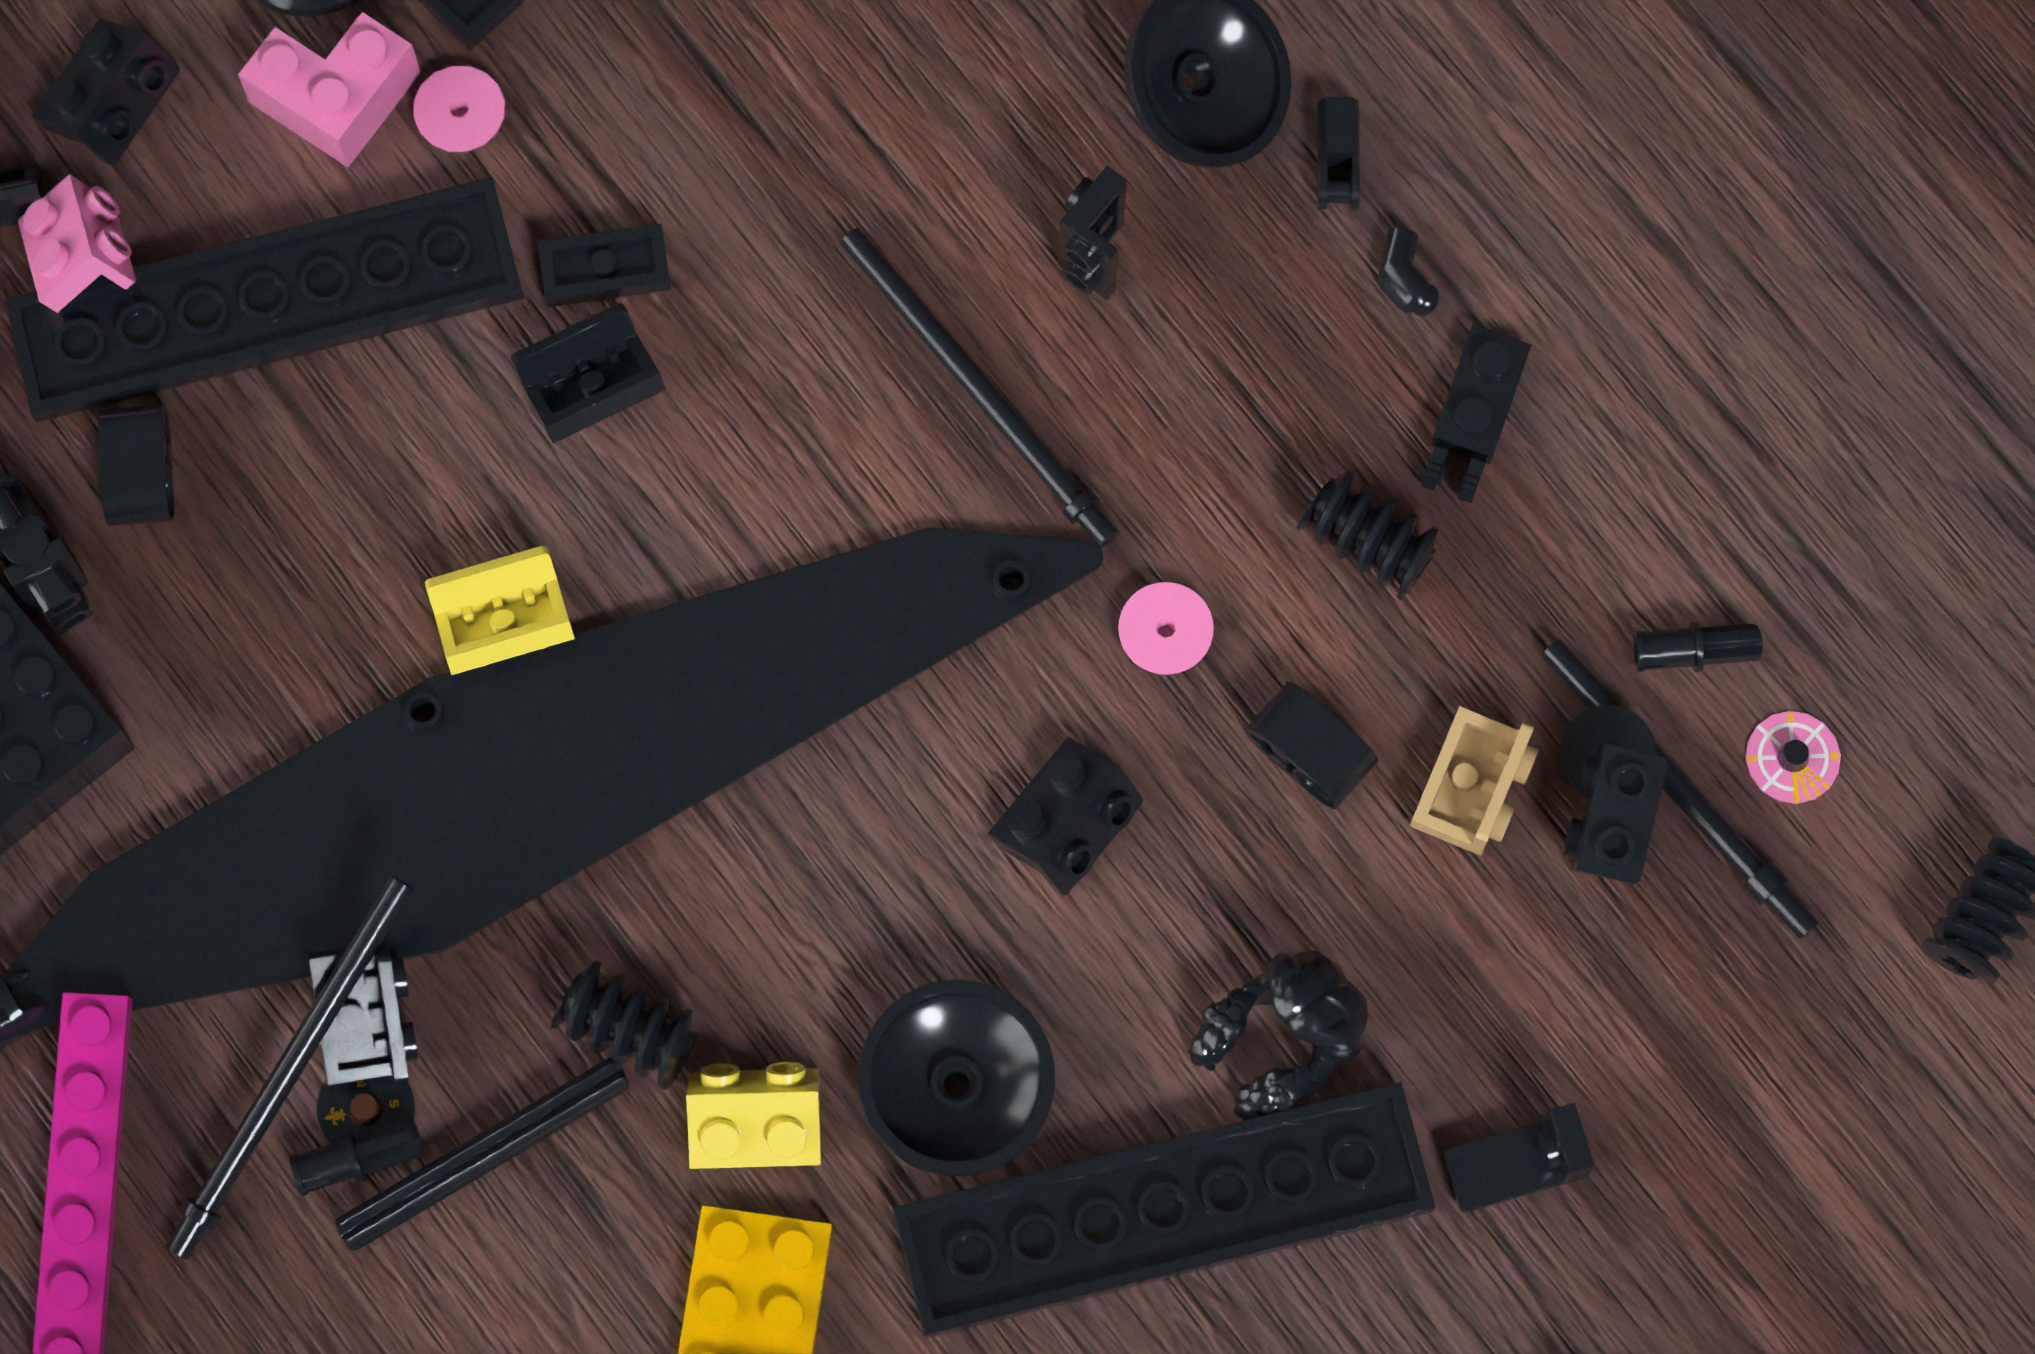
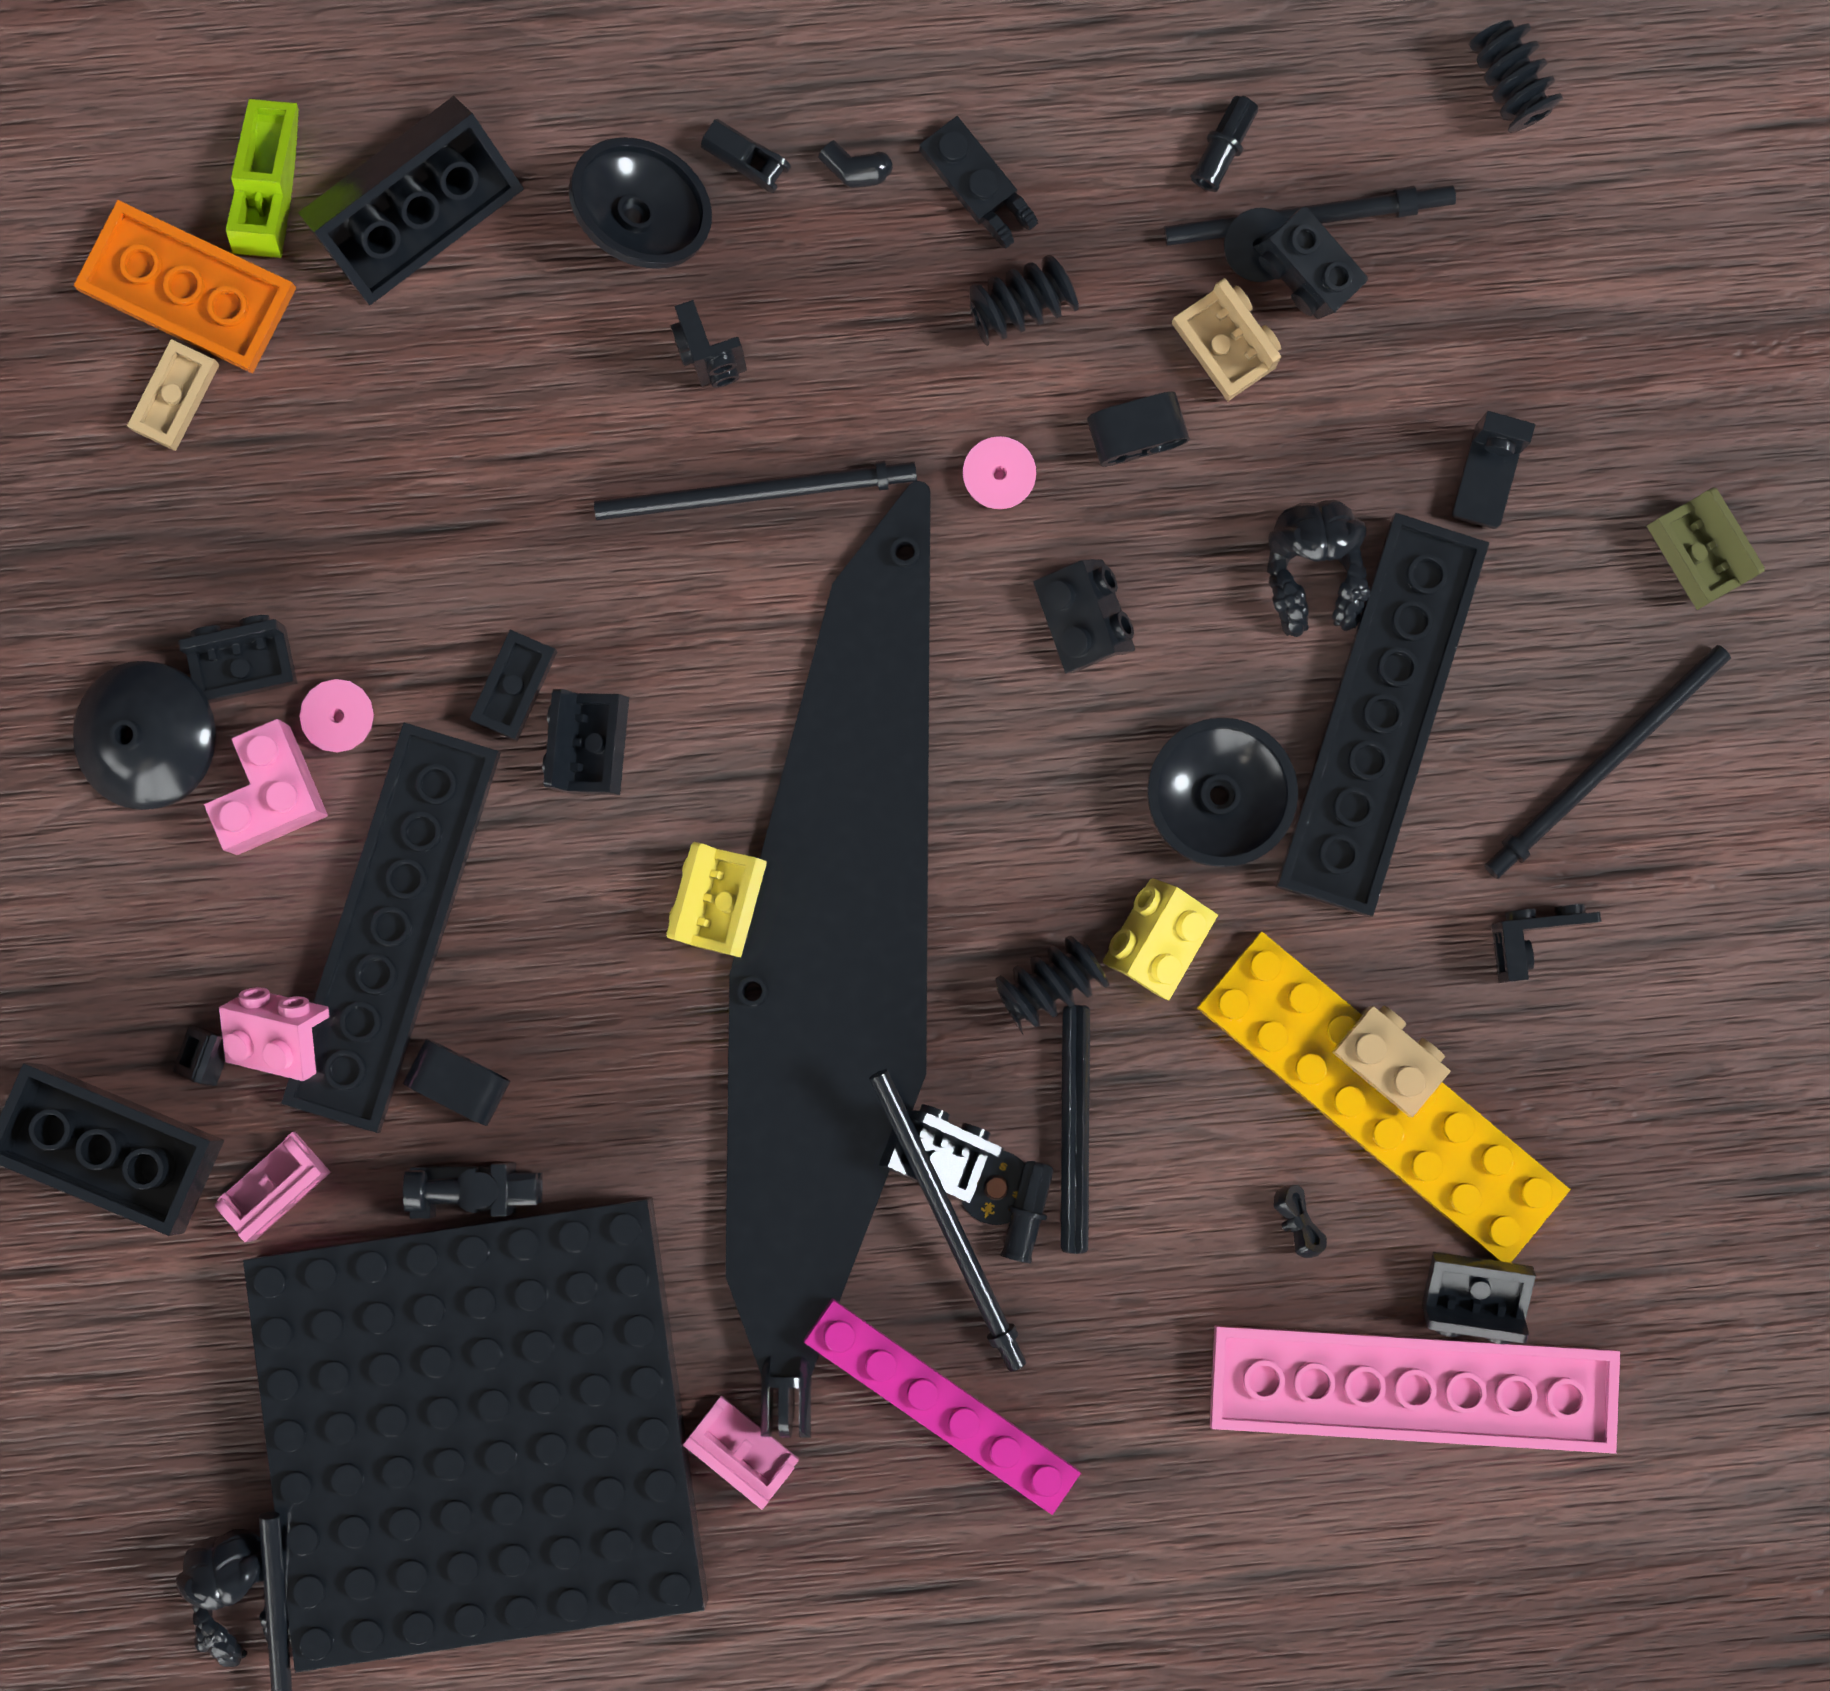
camera: 60 degrees left, 10 degrees up
(107, 89) = (167, 946): black bracket -> none
(1793, 757) = (1331, 131): bright pink piece -> none

